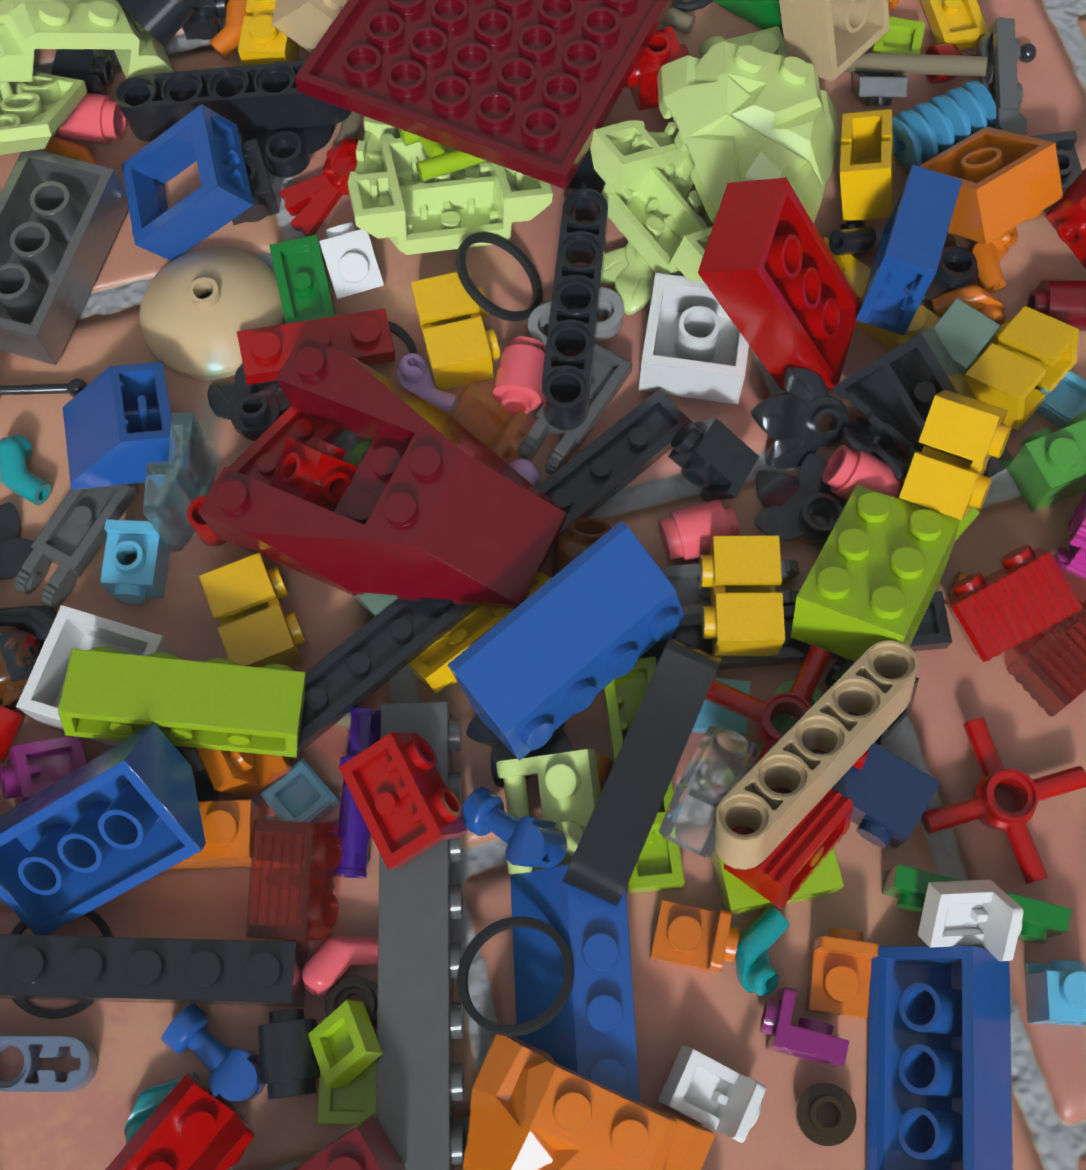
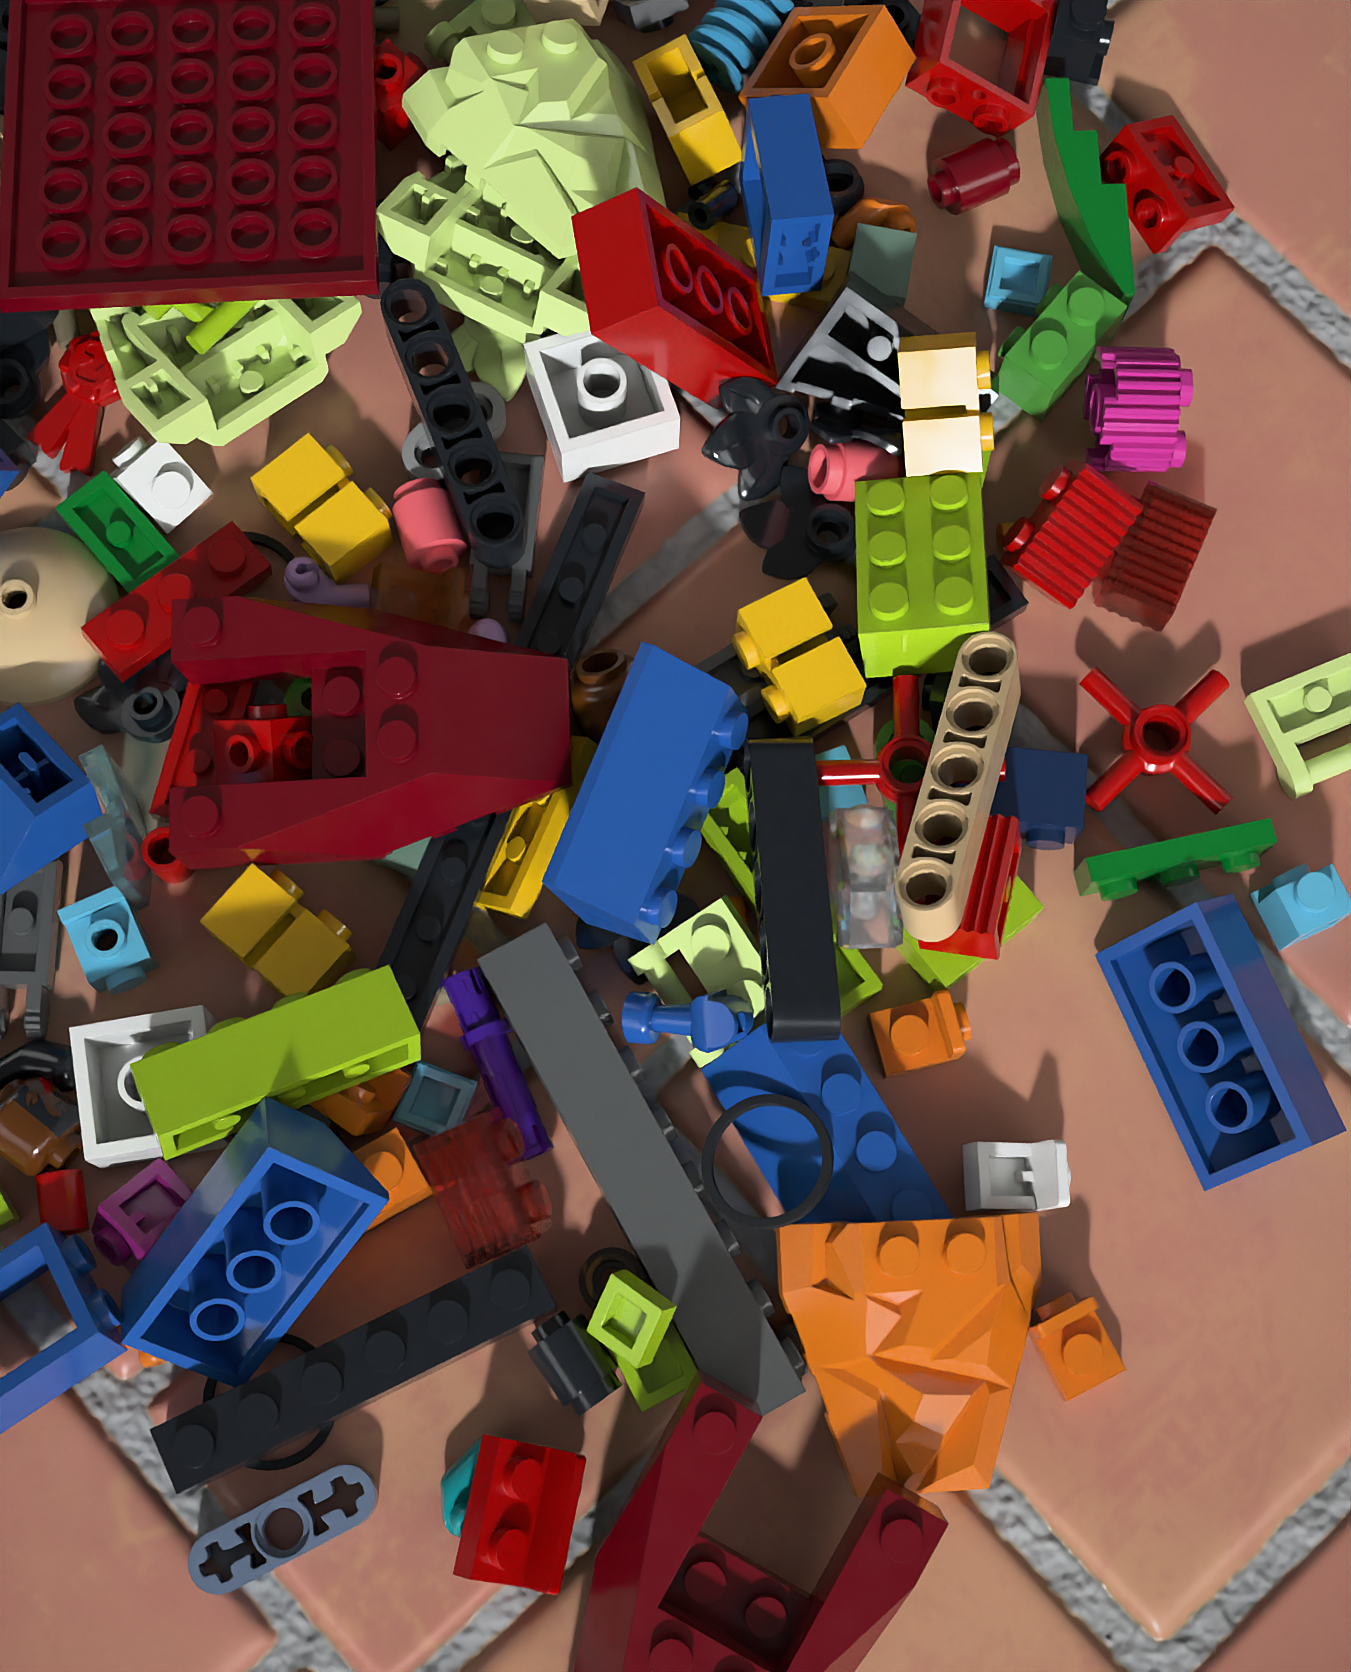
camera: 35 degrees left, 5 degrees up
(232, 1071) = (524, 1409): blue leg -> none
(334, 958) = (568, 1242): coral arm -> none
(403, 797) = (558, 1043): red bracket -> none
(475, 294) = (327, 455): black piece -> none
(691, 529) = (708, 609): coral brick -> none
(712, 458) = (687, 523): black brick -> none
(752, 952) = (988, 1027): teal arm -> none
(807, 1114) = (1118, 1152): dark brown plate -> none
(808, 1041) = (1082, 1076): magenta bracket -> none
(840, 974) = (1079, 995): orange bracket -> none
(971, 915) = (1180, 872): white bracket -> none
(988, 259) = (875, 174): orange arm -> none
(1023, 355) = (956, 257): yellow piece -> none

